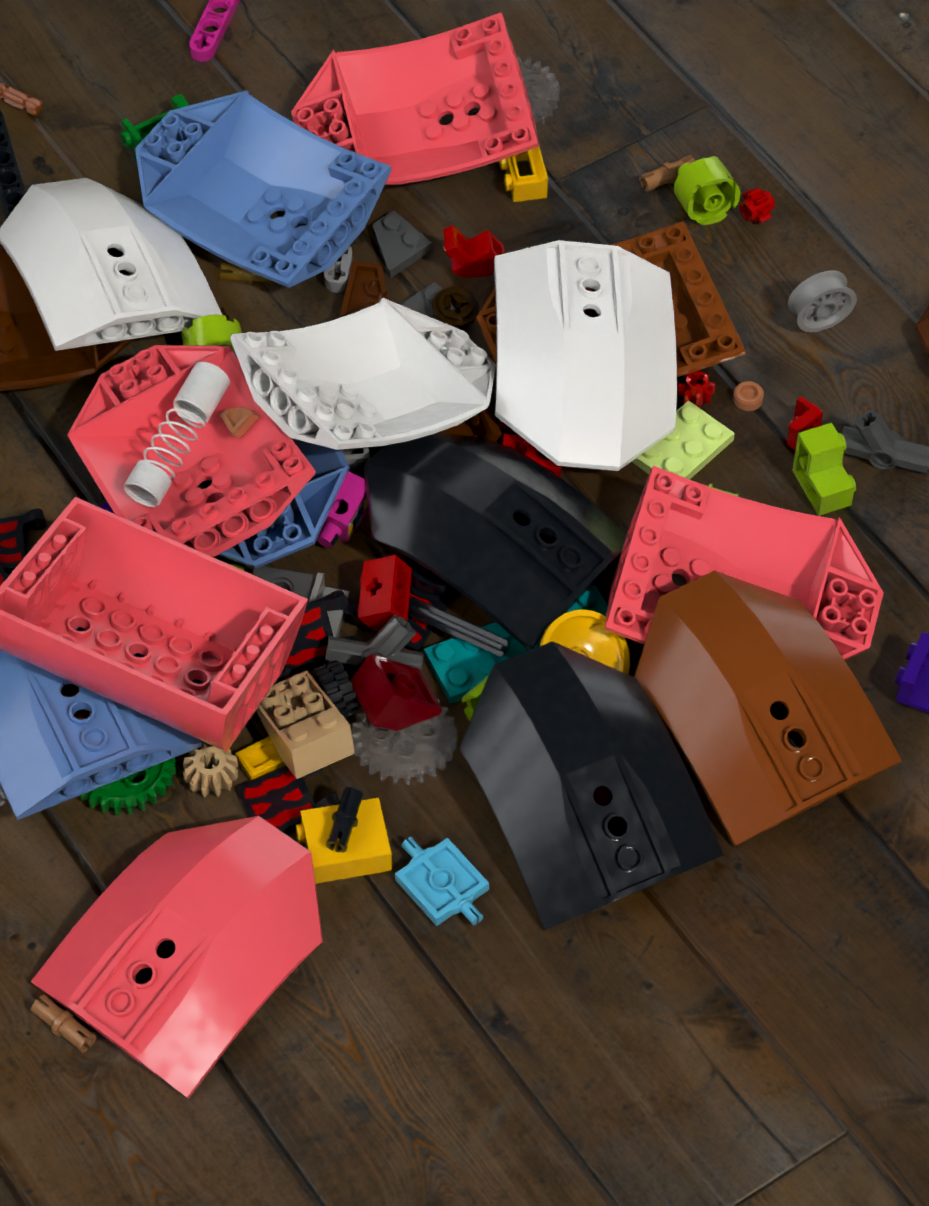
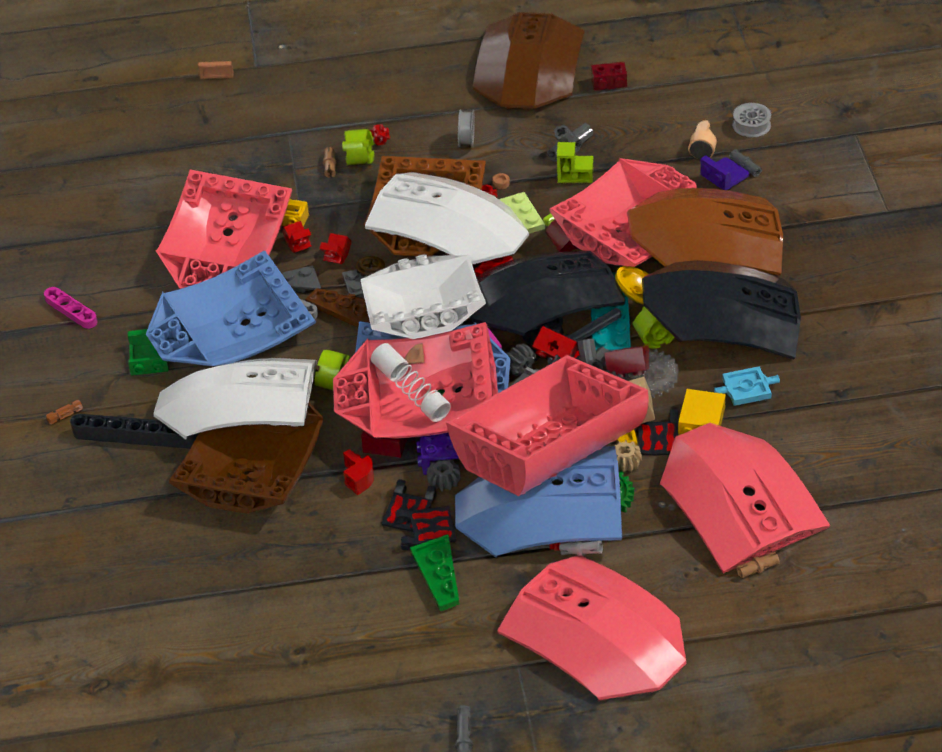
camera: 60 degrees left, 10 degrees down
(37, 463) = (359, 473): none -> red brick
(240, 275) = (277, 350): clear yellow pin -> none
(343, 560) = (520, 358): none -> dark grey gear
(345, 818) = (698, 401): black axle -> none
(475, 201) = (297, 237): none -> red brick
(806, 417) = (534, 162): red bracket -> none

